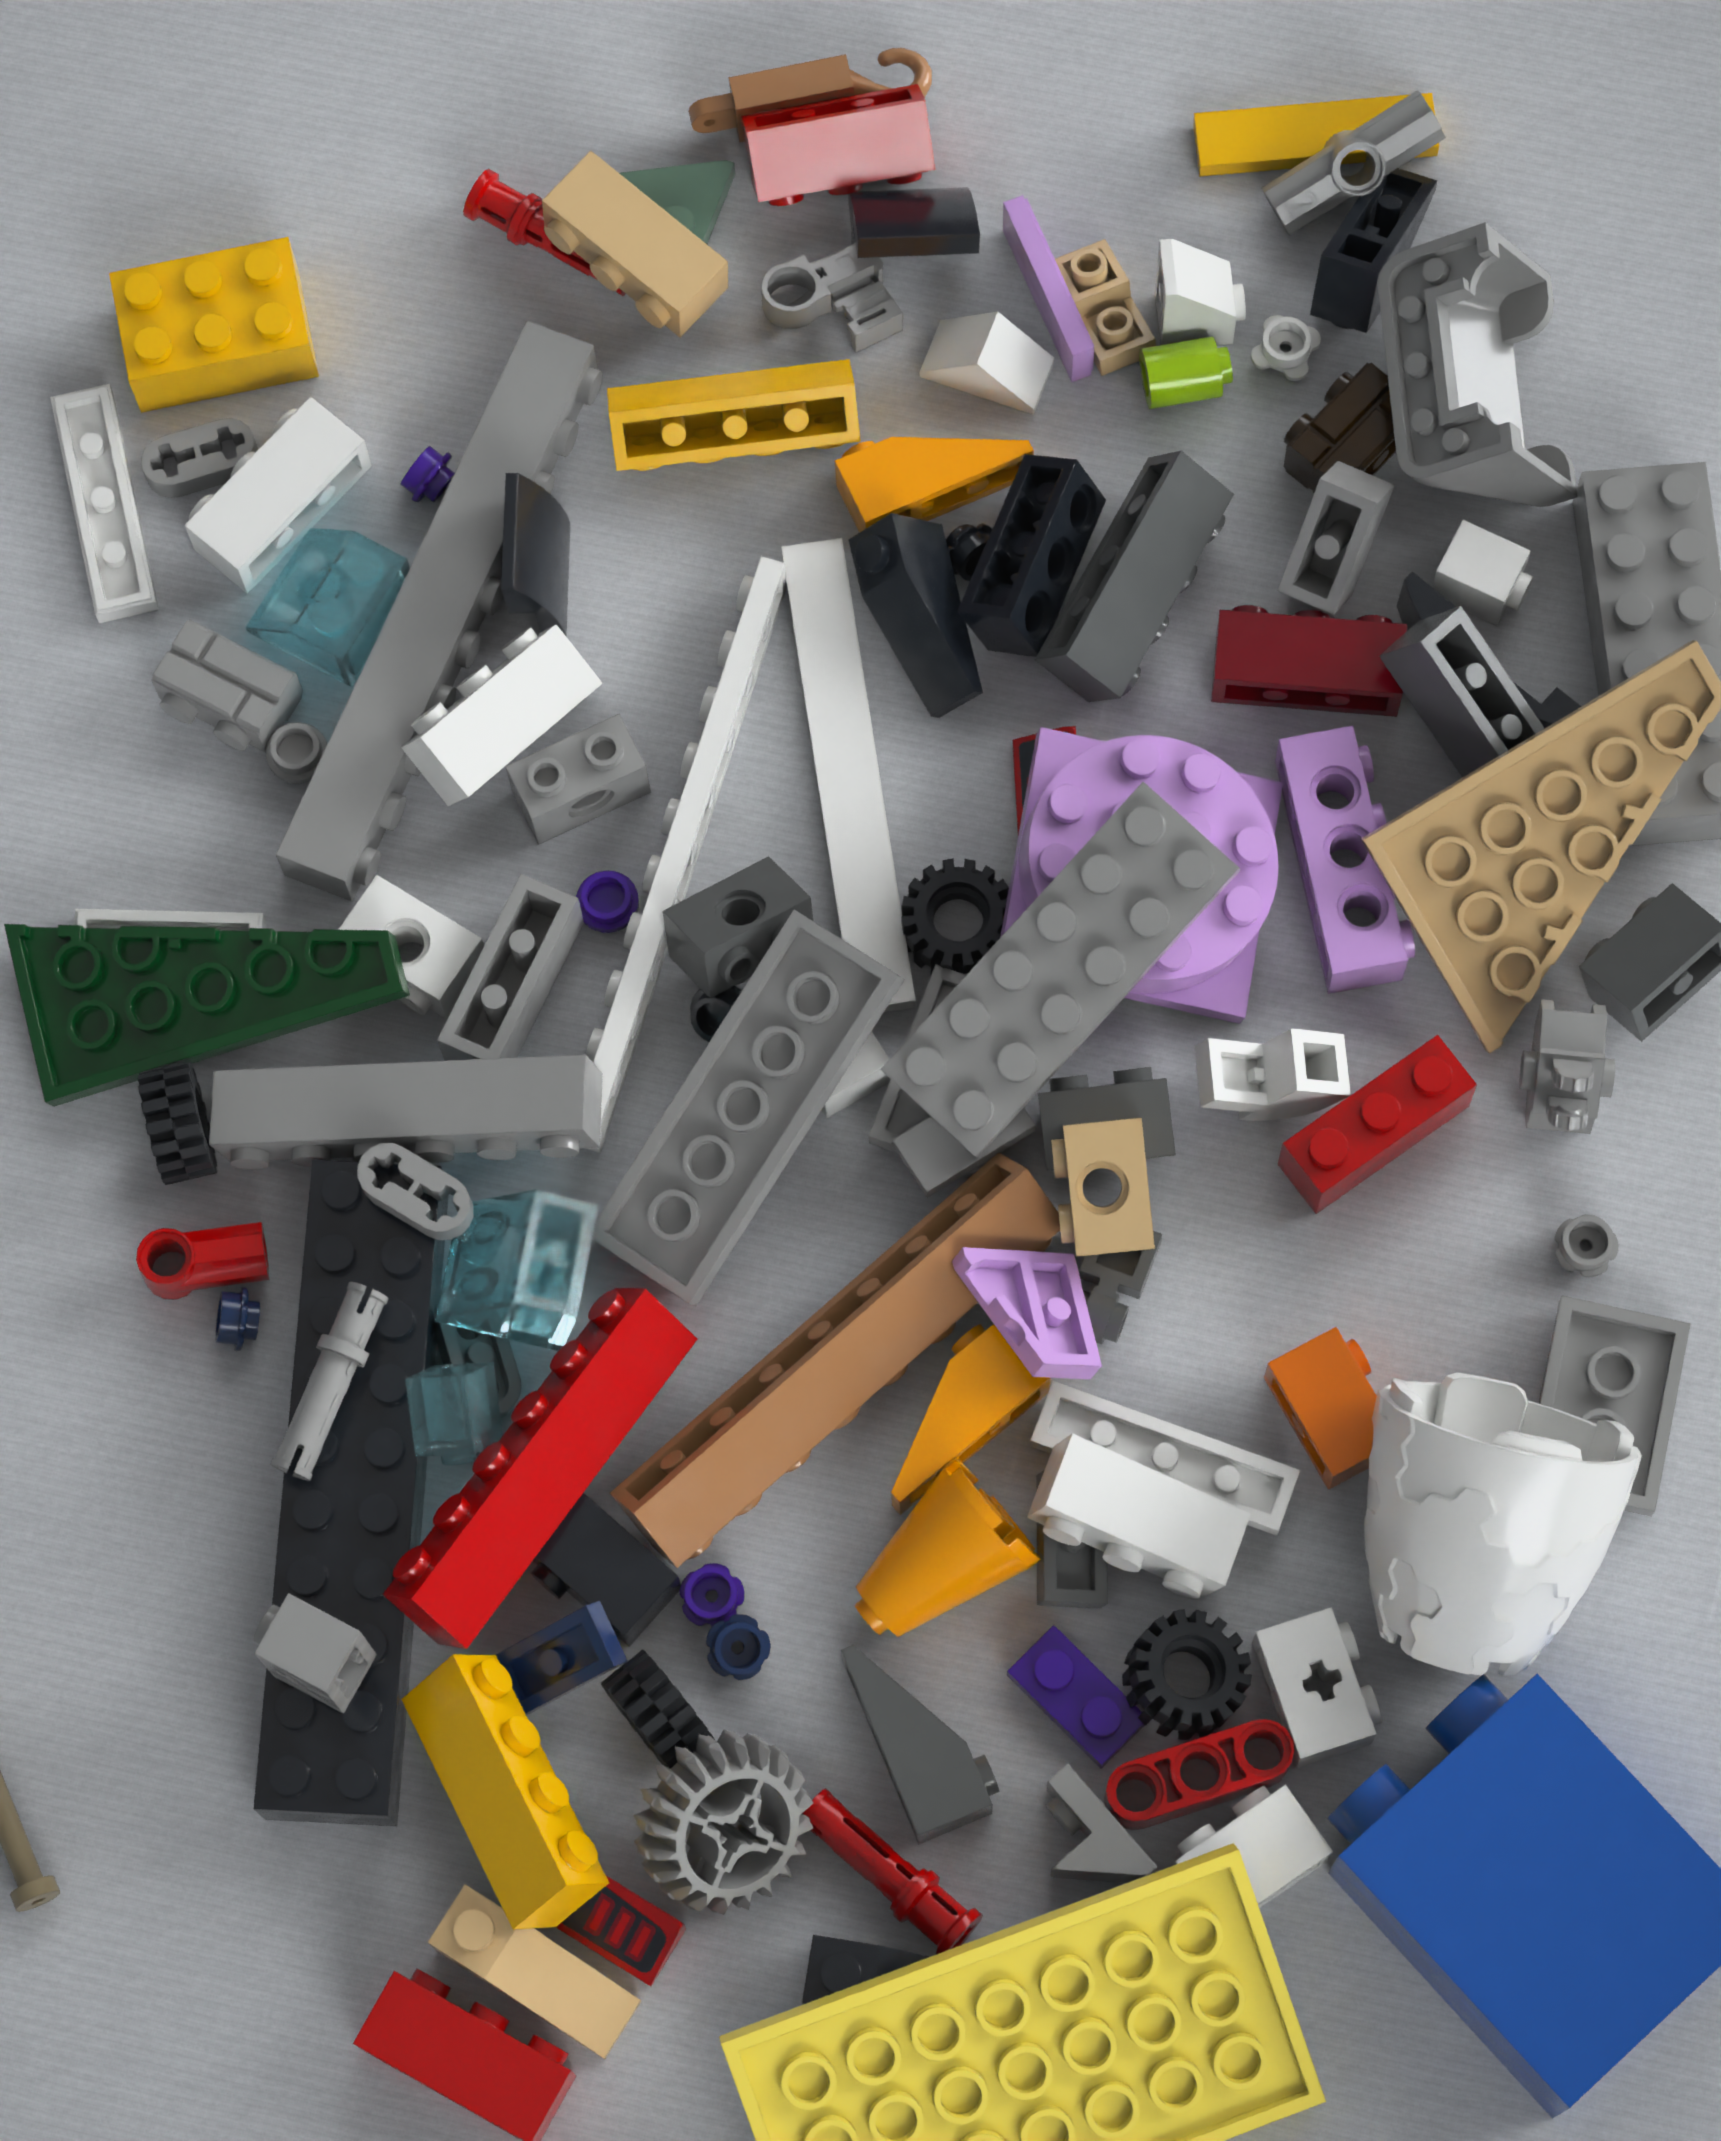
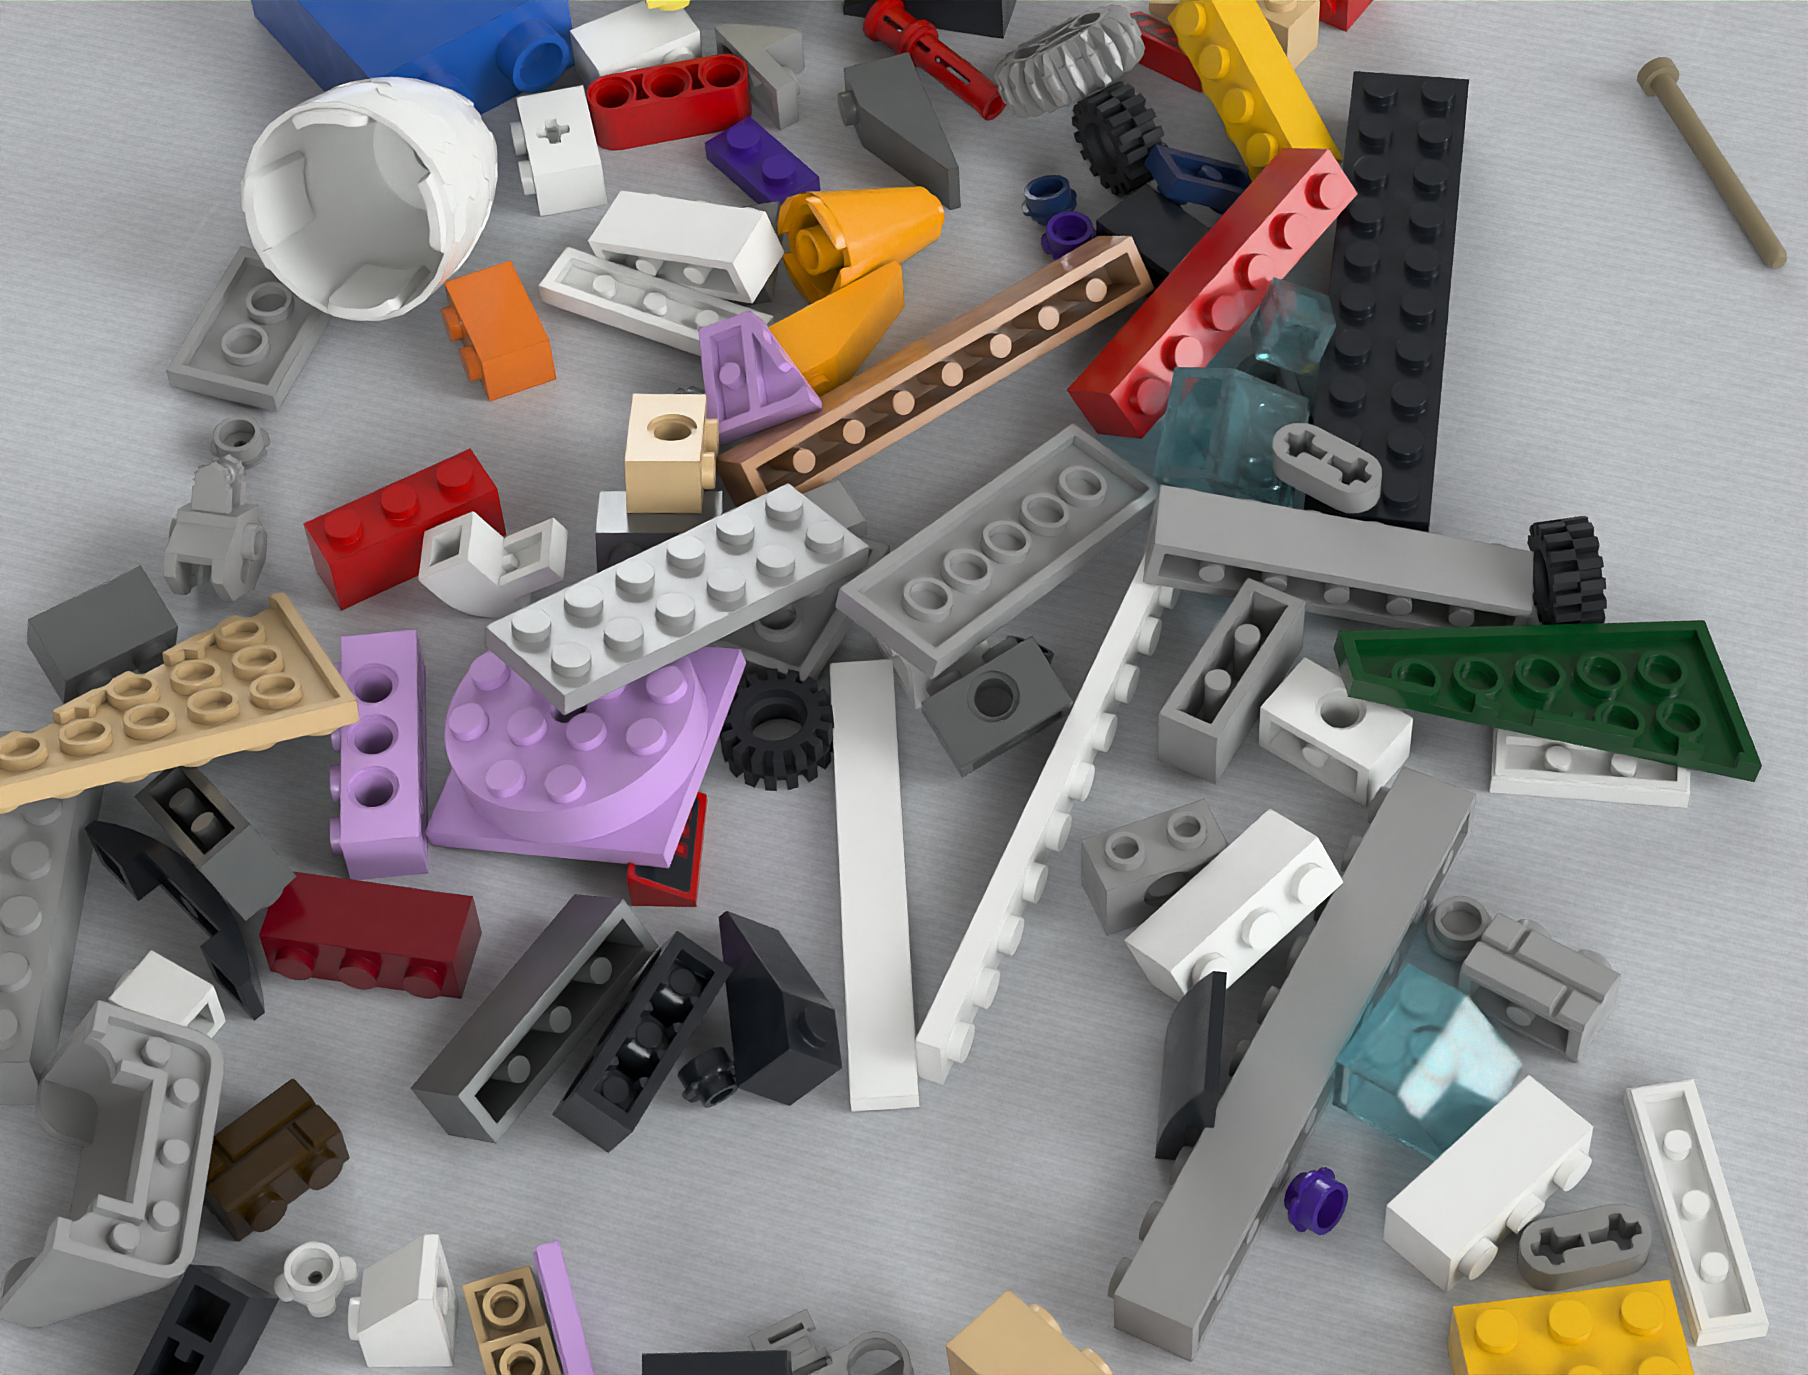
camera: 175 degrees left, 20 degrees down
(211, 1258) = (1557, 487): red piece -> none
(236, 1318) = (1502, 448): dark blue plate -> none
(313, 1651) = (1412, 112): light grey brick -> none
(329, 1381) = (1397, 340): light grey pin -> none
(607, 901) = (1132, 771): dark purple plate -> none
(733, 415) = (957, 1219): yellow brick -> none
(923, 475) = (754, 1148): light orange slope -> none
(988, 360) = (663, 1284): white slope -> none
(1184, 372) = (459, 1231): lime brick -> none
(1213, 1648) = (661, 134): black tyre -> none
(1335, 537) = (309, 1018): light grey brick -> none

